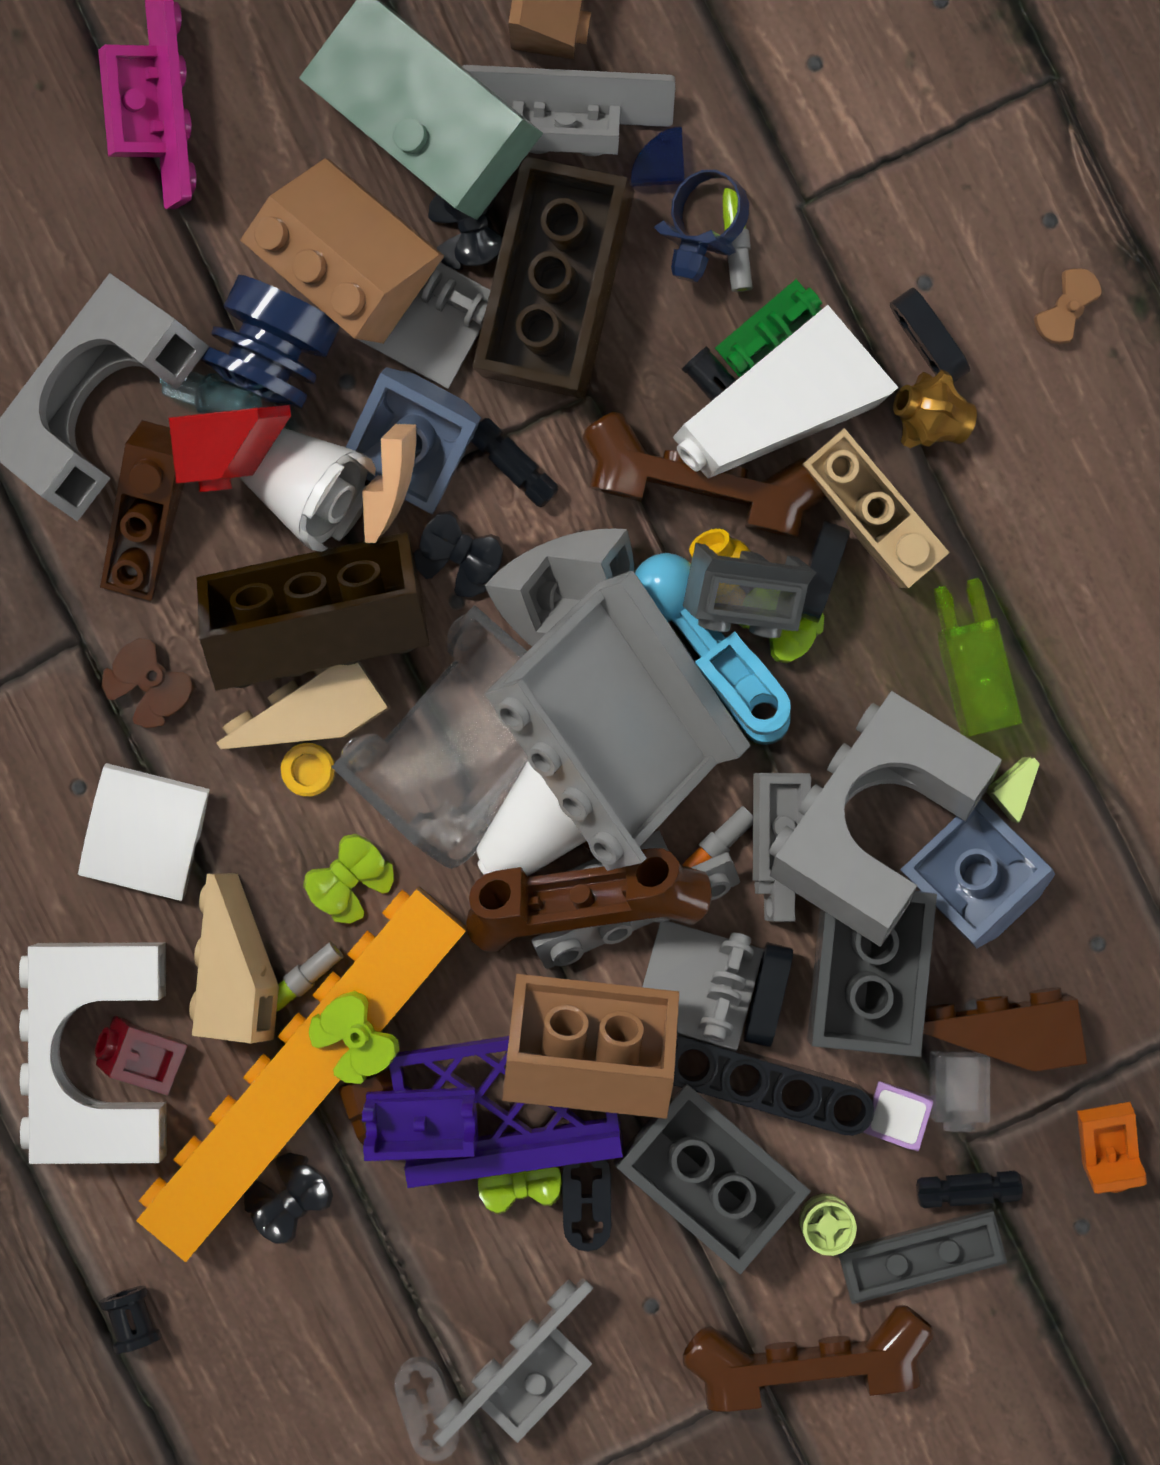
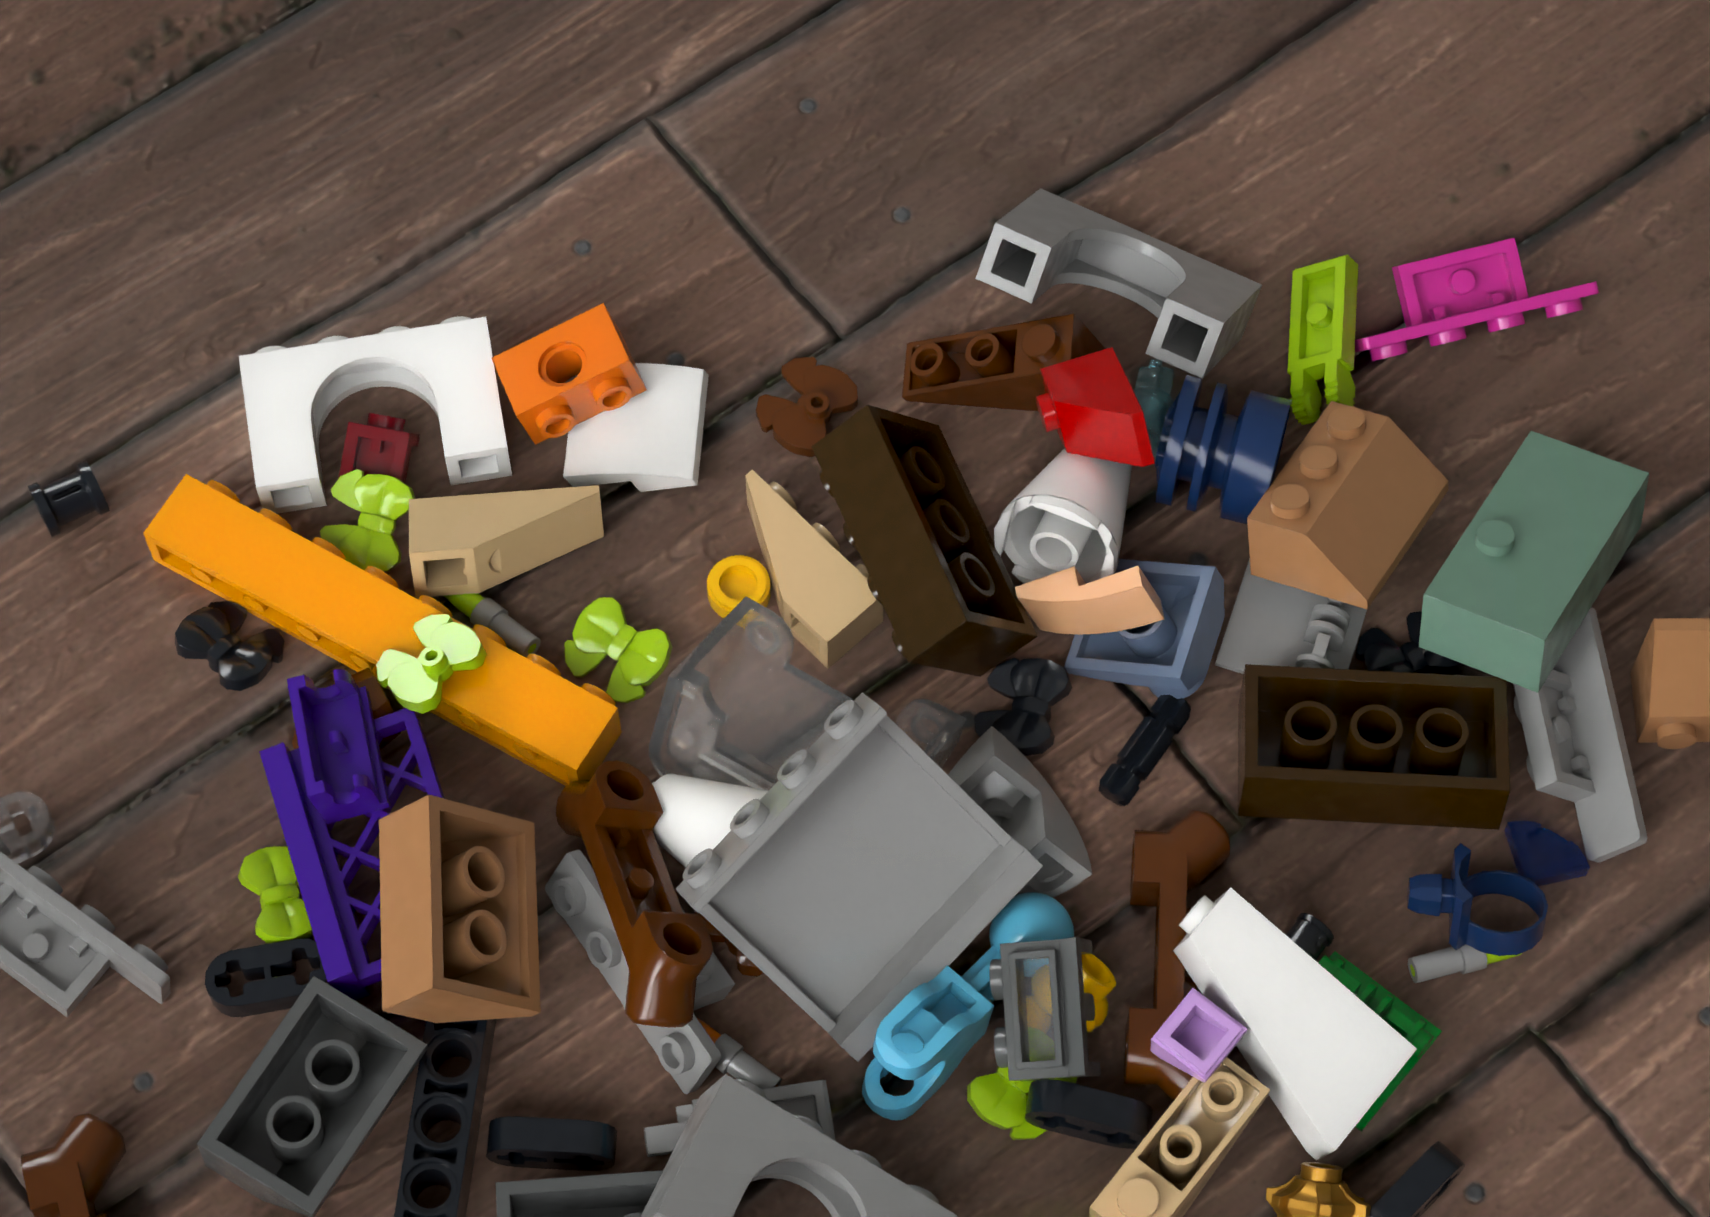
camera: 80 degrees right, 25 degrees down
(87, 912) = (539, 367): none -> orange brick
(164, 231) = (1322, 335): none -> lime hinge
(214, 1070) = (382, 502): none -> lime piece
(712, 980) = (554, 1061): light grey hinge -> none
(793, 475) = (1197, 1036): none -> lavender slope

